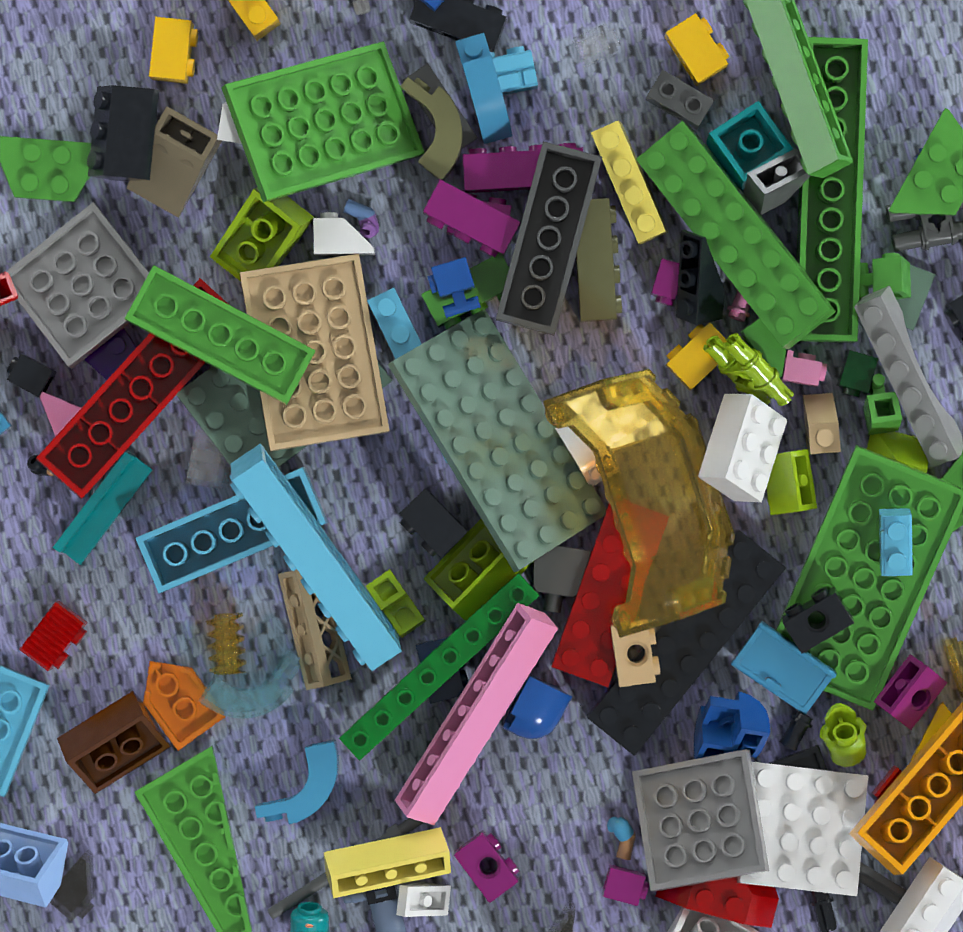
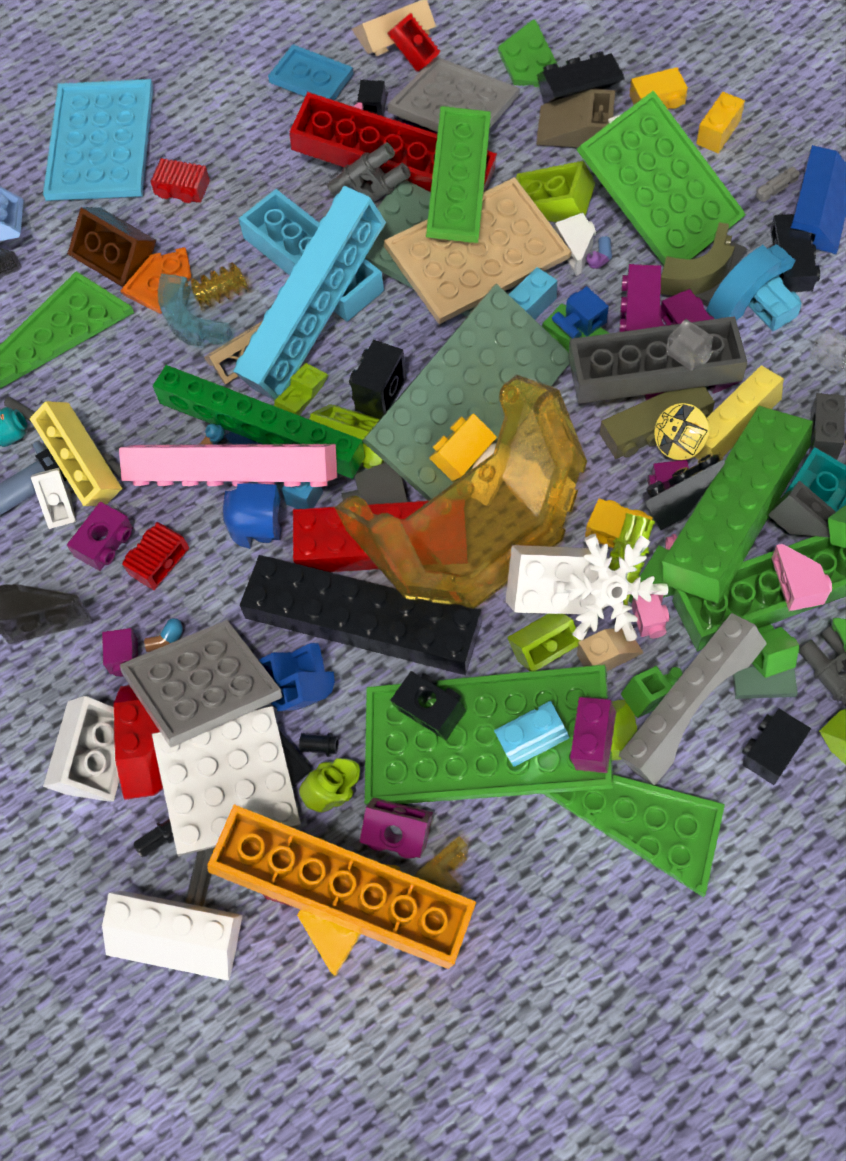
camera: 70 degrees right, 25 degrees down
(103, 507) = (291, 177): teal fence -> none
(171, 431) = (368, 177): none -> dark grey pin
(322, 776) = (121, 389): dark azure arch -> none
(422, 716) = (214, 434): none -> dark azure arm
(532, 818) = (155, 555): none -> red brick
(560, 474) = (462, 447): none -> yellow brick
(567, 207) = (690, 345): none -> clear brick
(633, 672) = (335, 544): tan brick -> none
(635, 251) = (681, 431): none -> light yellow dish
(777, 657) = (374, 718): dark azure door -> none
(783, 405) = (610, 587): none -> white piece
(848, 226) = (800, 578): none -> bright pink slope
(857, 373) = (671, 655): dark green brick -> none
(925, 491) = (593, 735): none -> magenta brick

